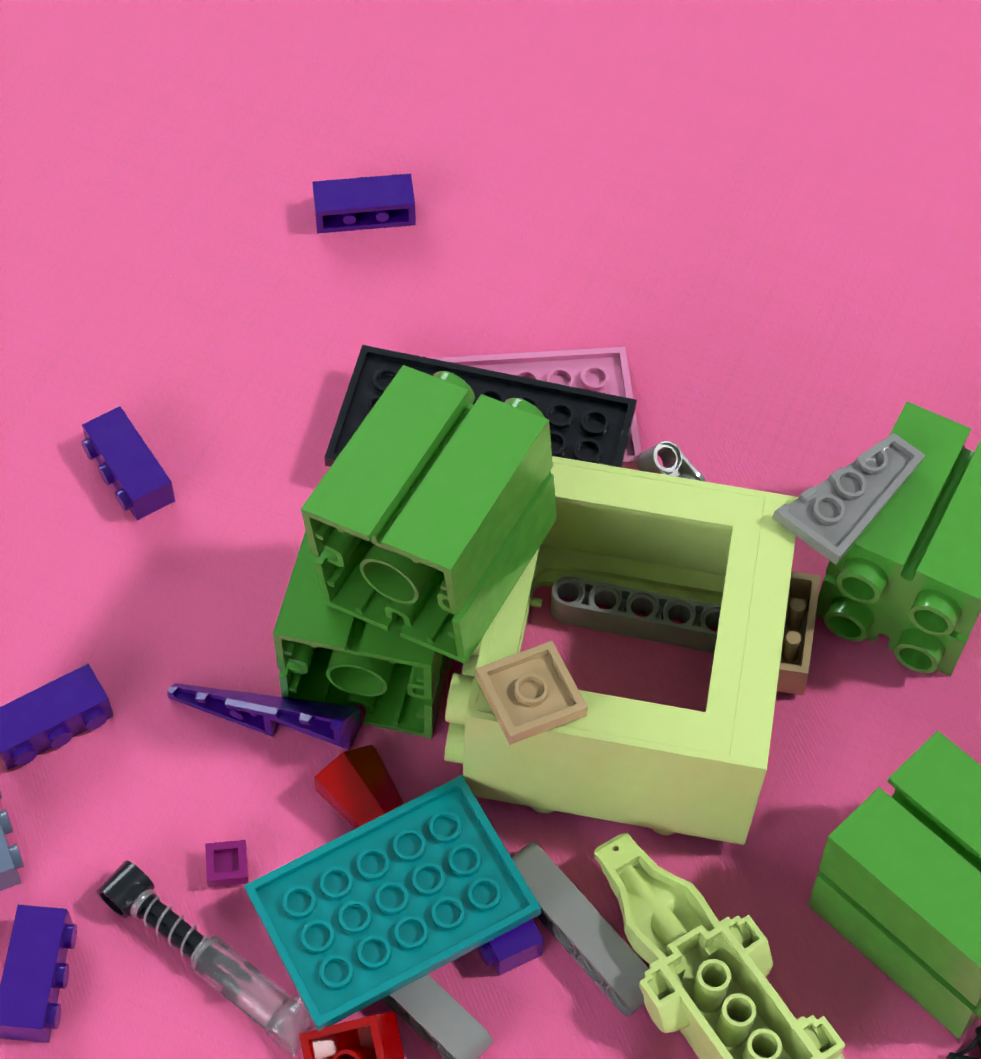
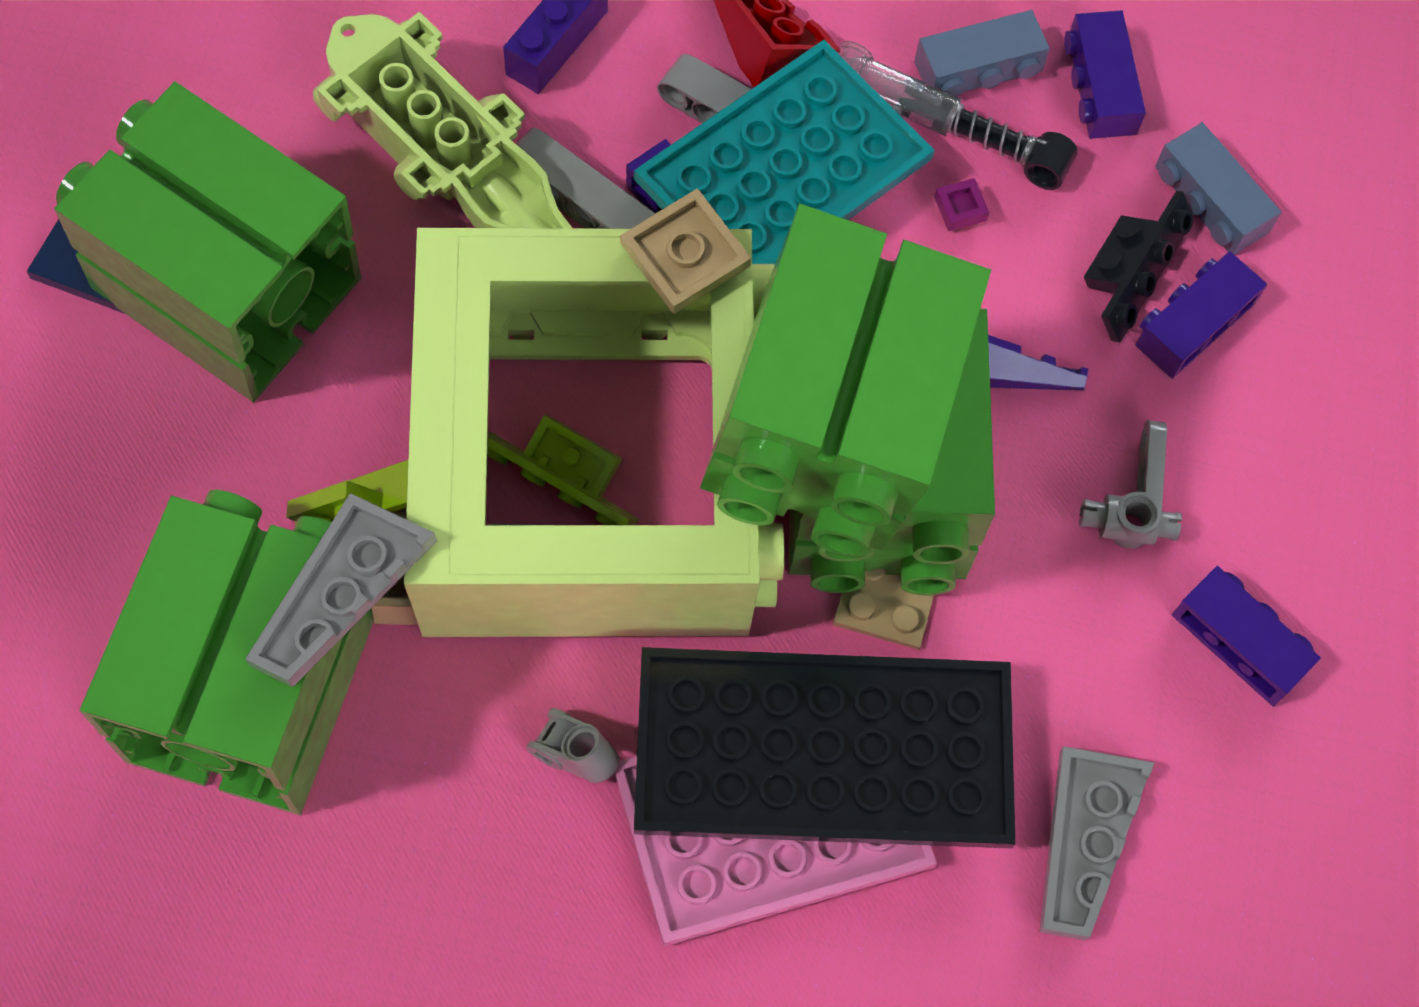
camera: 165 degrees right, 10 degrees up
(88, 782) = (1135, 260): none -> black bracket
(150, 1017) = (983, 54): none -> sand blue brick
(164, 571) = (1144, 503): none -> light grey piece
(301, 364) = (1088, 831): none -> light grey wing
(638, 672) = (568, 463): none -> lime bracket
(837, 652) = (382, 488): none -> lime bracket

